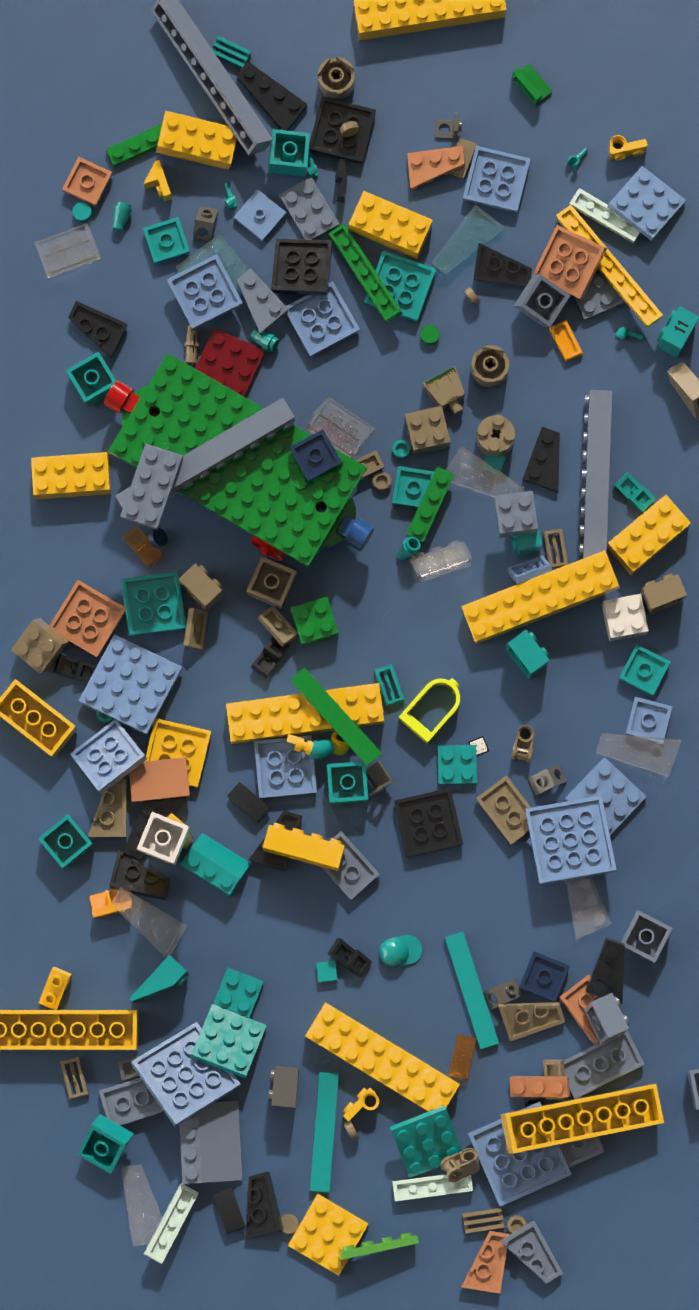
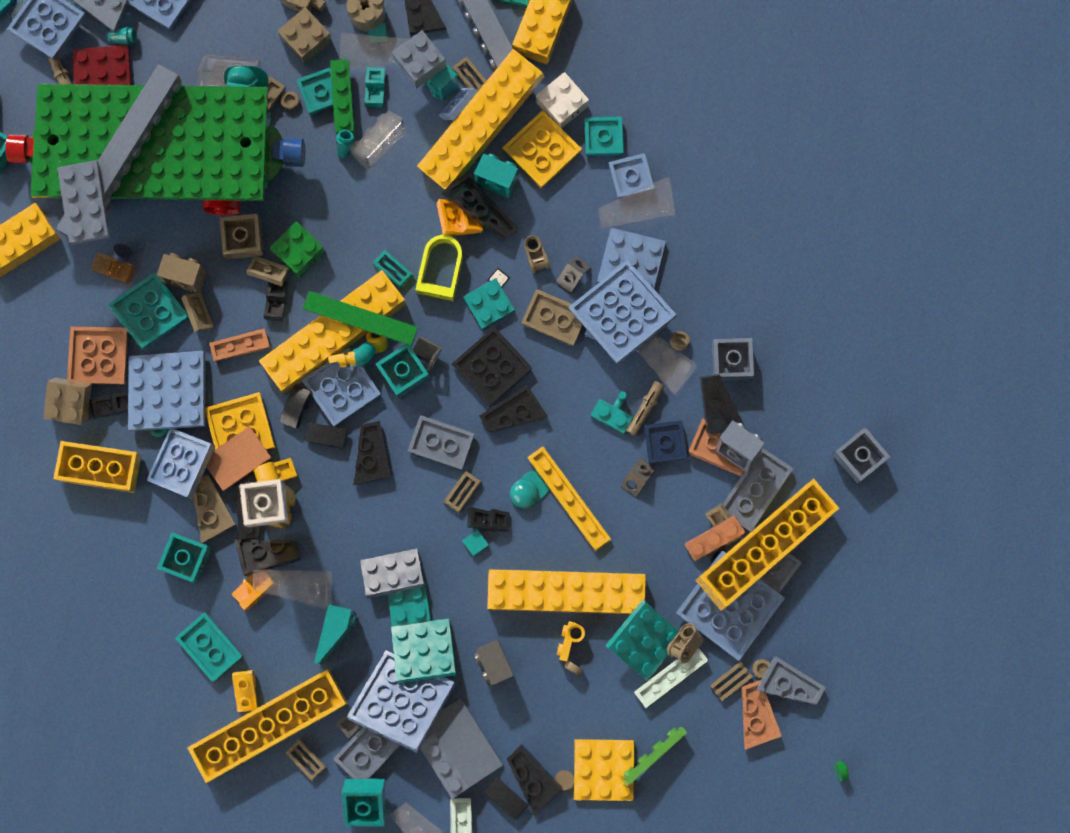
camera: 25 degrees left, 0 degrees up
(44, 932) = (209, 647): none -> teal plate
(186, 810) = (280, 470): none -> yellow plate
(215, 864) = (327, 505): teal slope -> none
(216, 679) = (239, 345): none -> nougat plate
(236, 760) = (295, 405): none -> black slope
(239, 957) = (392, 573): none -> plate
(304, 848) = (394, 446): yellow brick -> none
(315, 455) = (215, 99): dark blue plate -> none
(324, 1132) = (551, 683): teal tile -> none
(326, 926) = (468, 496): none -> dark tan tile
(352, 443) = (245, 76): none -> teal piece
(401, 449) = (291, 65): teal tile -> none
(427, 873) = (513, 411): none -> black wing
(431, 978) = (569, 498): none -> yellow tile
(462, 1057) = (633, 550): clear orange slope -> none
(464, 511) = (374, 87): none -> teal slope
(471, 990) = (609, 489): teal tile -> none
(474, 672) = (455, 220): none -> light orange slope
(496, 669) = (477, 204): none -> black wing
(511, 926) = (612, 415): none -> teal plate
(530, 1018) = (673, 484): dark tan wing -> none
(562, 926) = (644, 410): none -> dark tan pin
(582, 651) = (541, 149): none -> yellow plate
(608, 893) = (679, 340): none -> dark tan tile
(663, 593) = (583, 61): dark tan brick -> none

